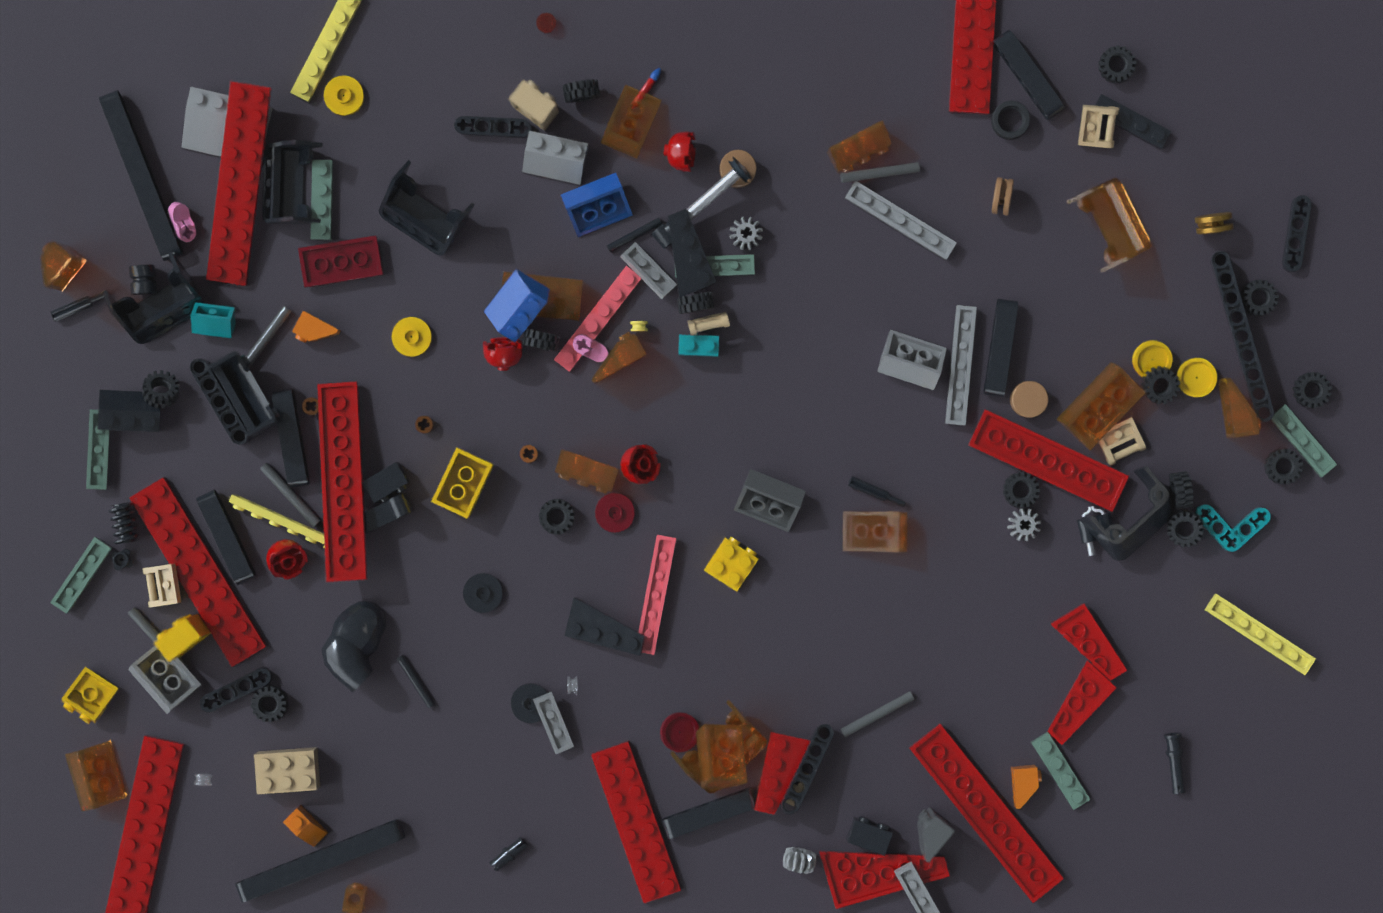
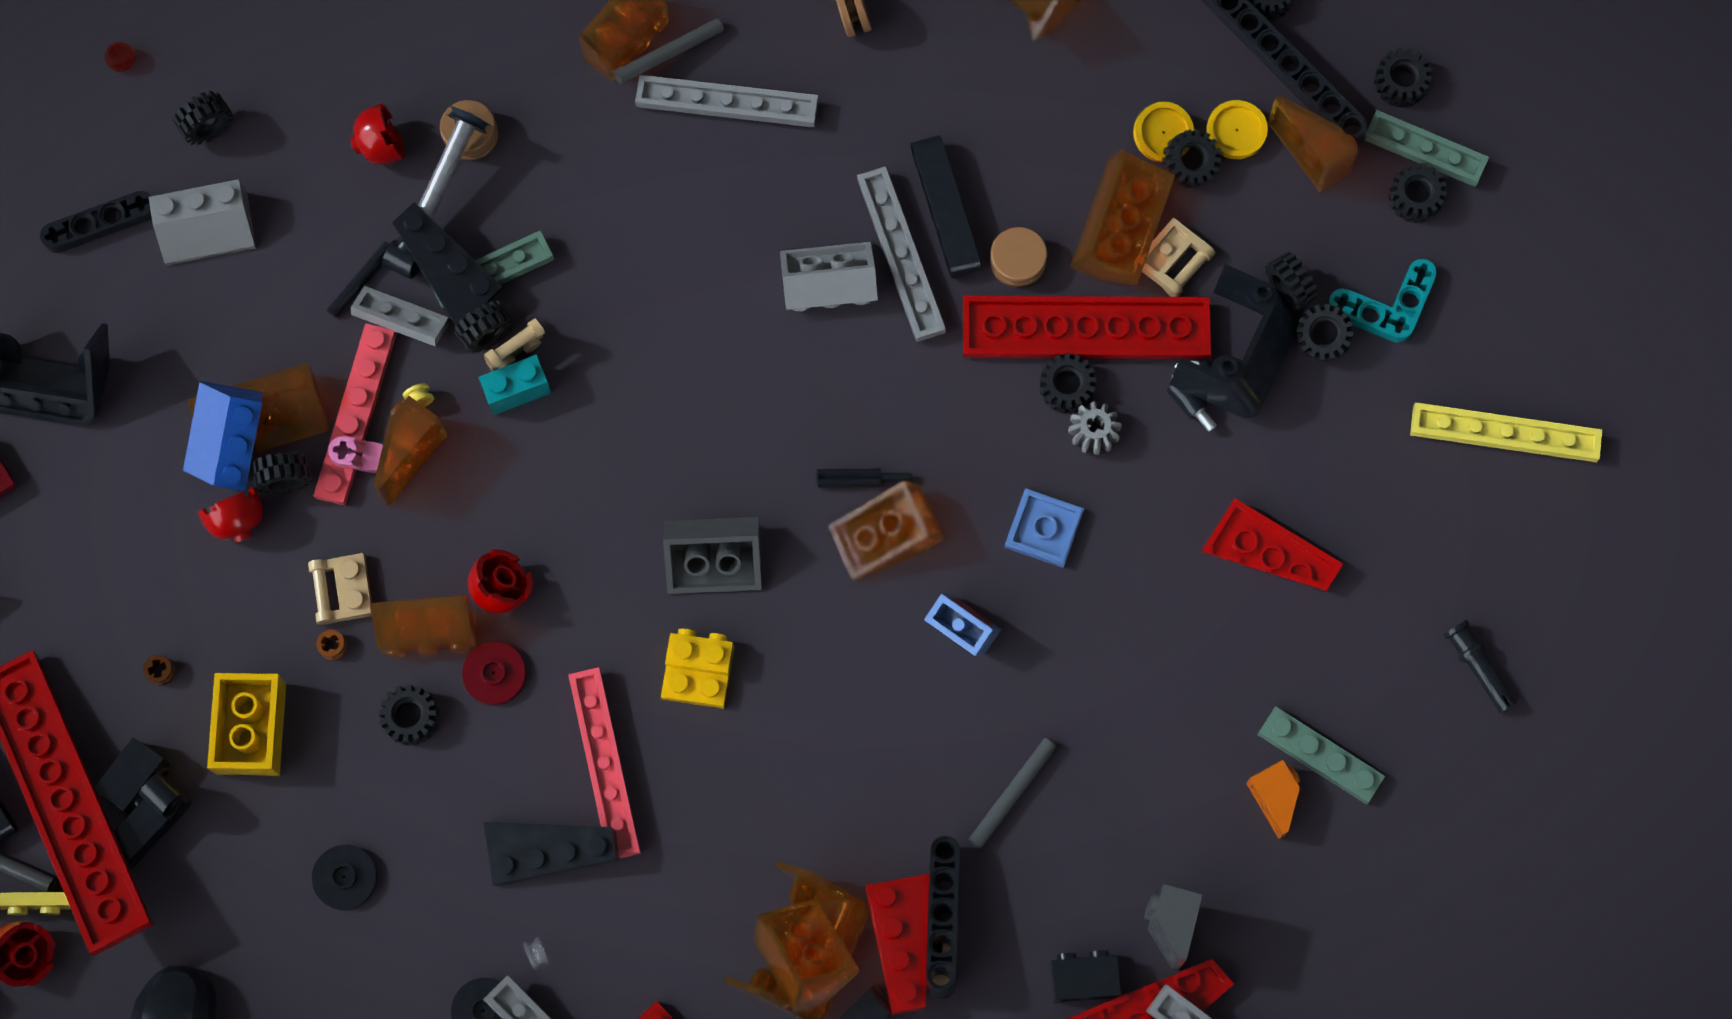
camera: 20 degrees left, 15 degrees down
(420, 335) = (102, 565): yellow piece -> none
(534, 105) = (139, 157): tan brick -> none
(554, 423) = (351, 586): none -> tan plate
(596, 204) = (289, 260): blue slope -> none
(630, 121) = (290, 132): clear orange slope -> none
(650, 82) = (294, 91): piece -> none
(670, 732) = (725, 936): dark red piece -> none
(741, 227) = (506, 207): light grey gear -> none
(893, 608) = (962, 624): none -> medium blue brick
(967, 569) = (1044, 528): none -> medium blue tile
(986, 813) = (1244, 866): red plate -> none
(1083, 699) = (1301, 639): red wing -> none

